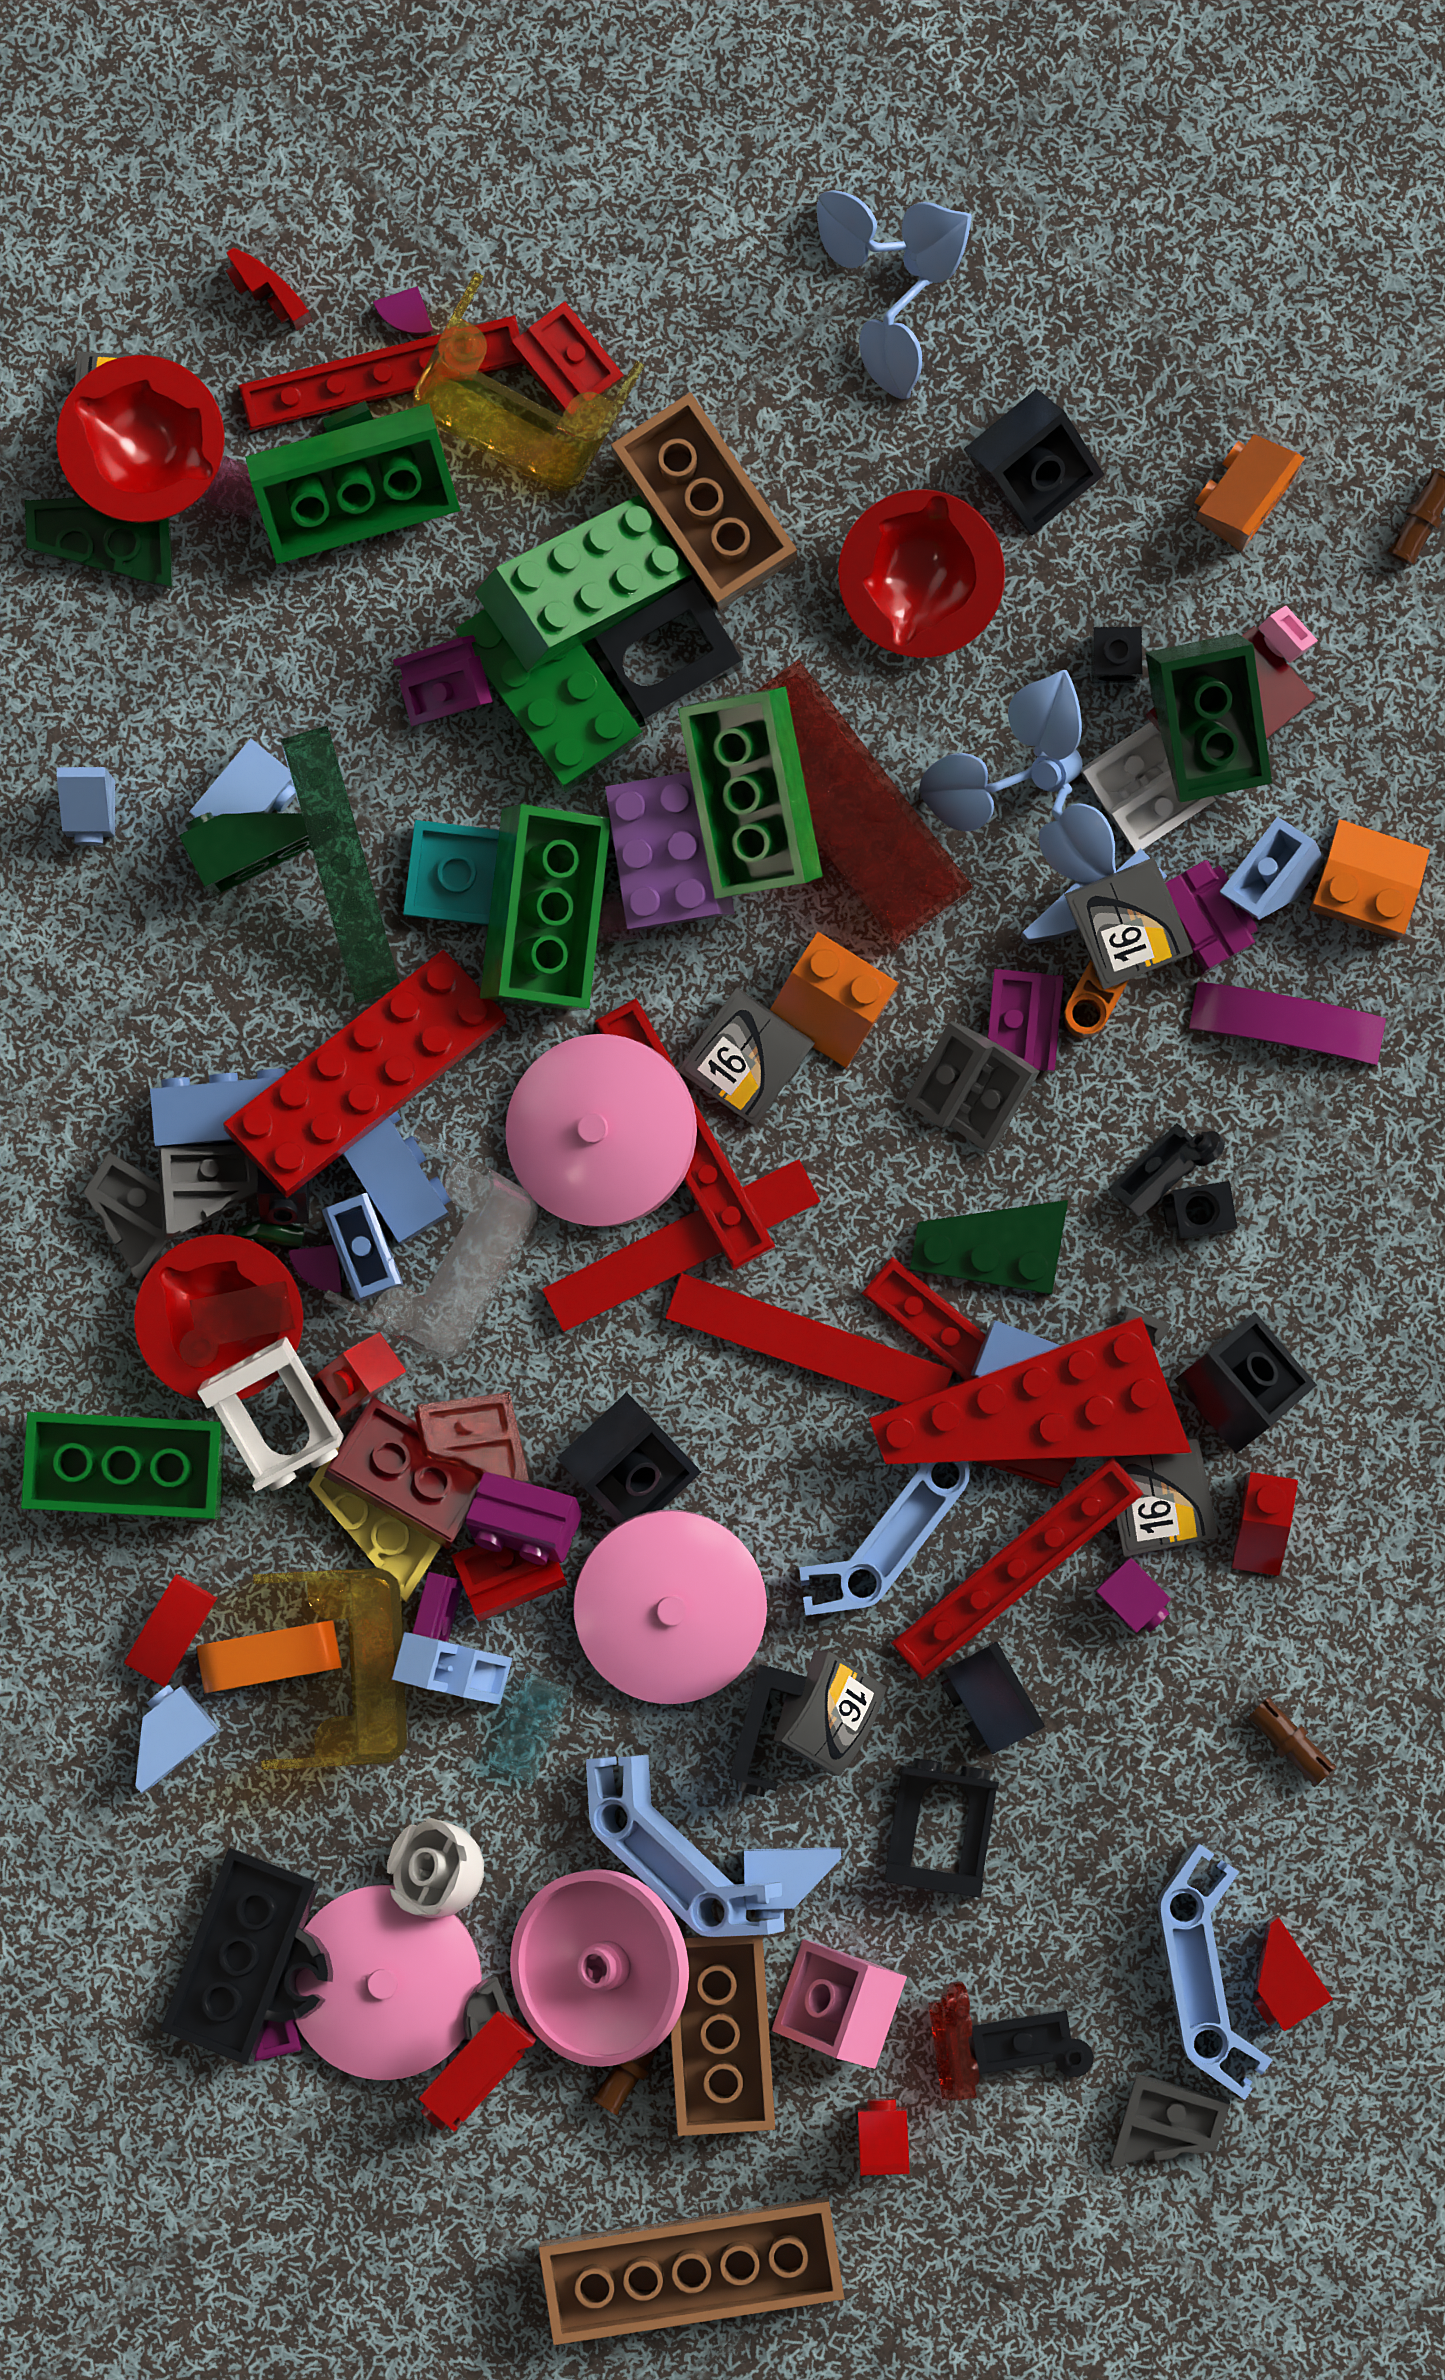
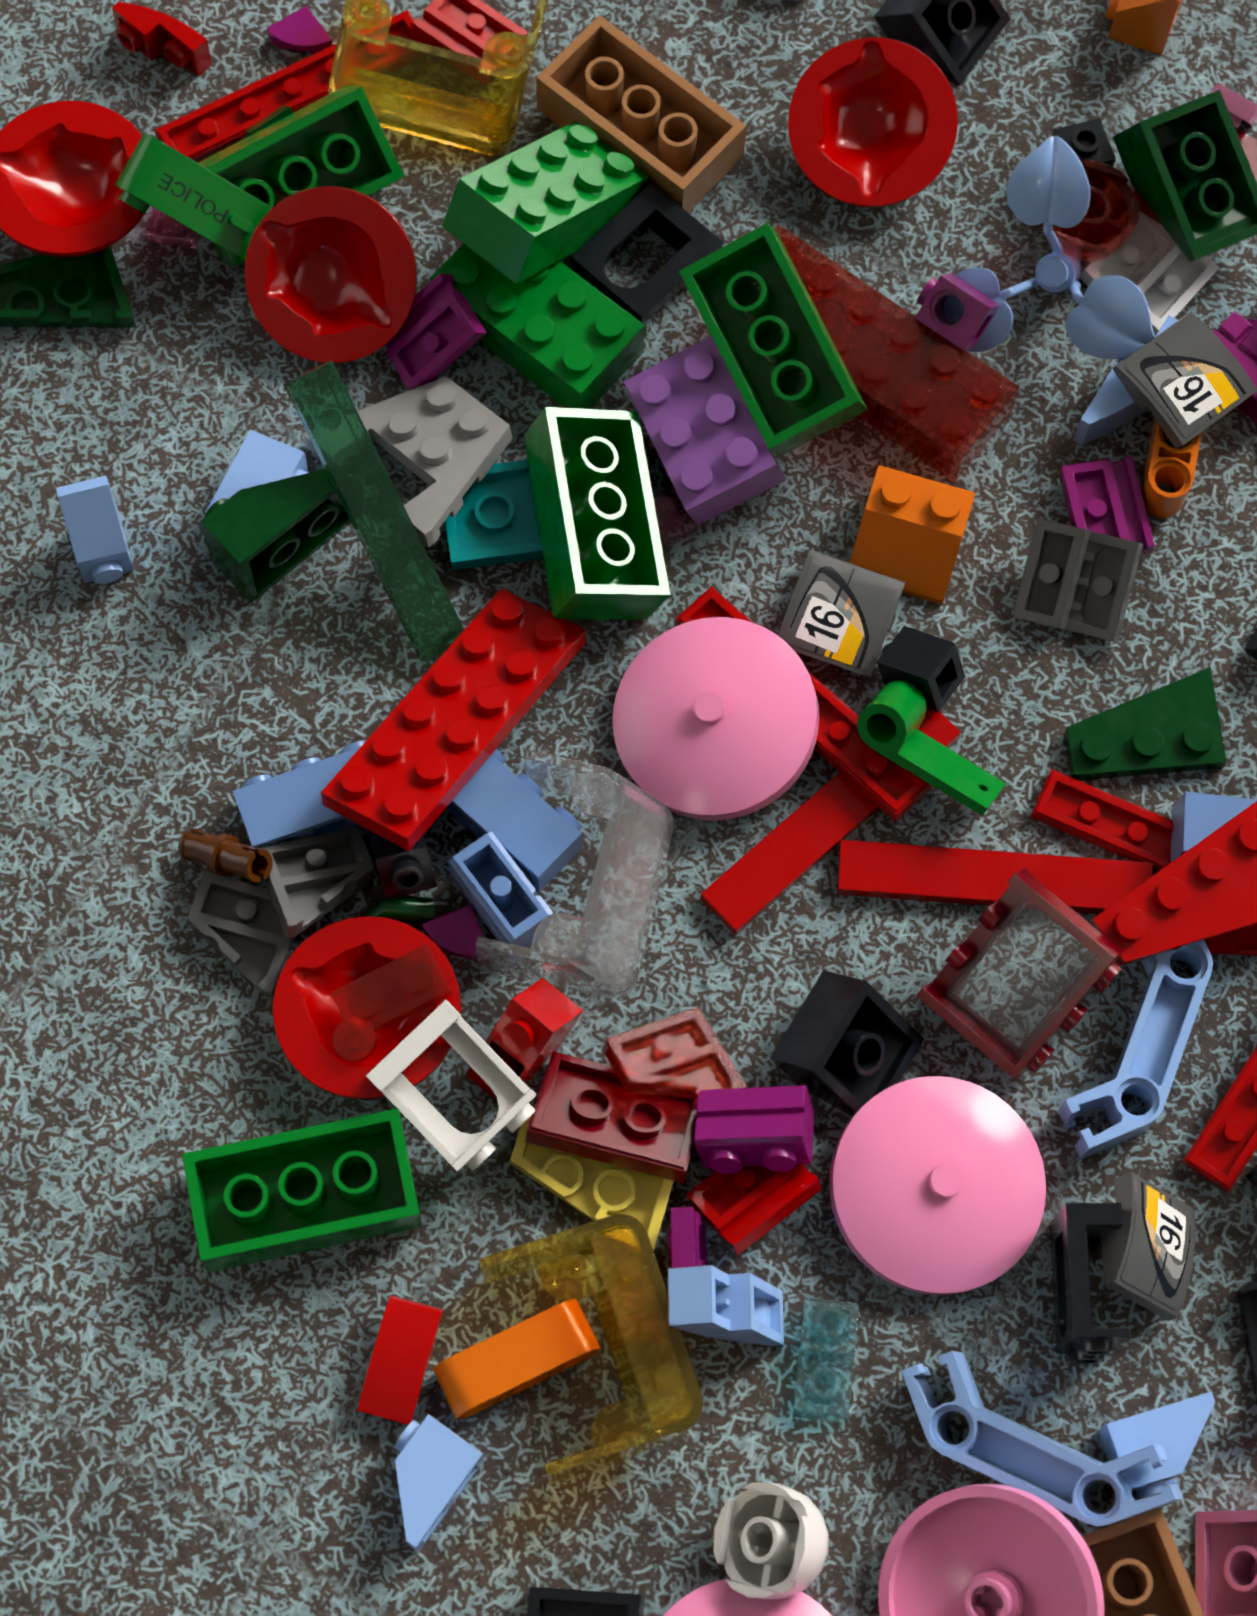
camera: 25 degrees left, 15 degrees down
(129, 1145) = (225, 855): none -> reddish brown pin
(231, 484) = (190, 194): none -> green door
(362, 605) = (330, 274): none -> red piece
(427, 788) = (443, 440): none -> light grey wing
(755, 1196) = (891, 728): none -> green door
(794, 1449) = (1022, 976): none -> window
(799, 1135) = (925, 662): none -> black brick
(955, 792) = (977, 310): none -> magenta brick
(1111, 722) = (1108, 220): none -> clear red cylinder

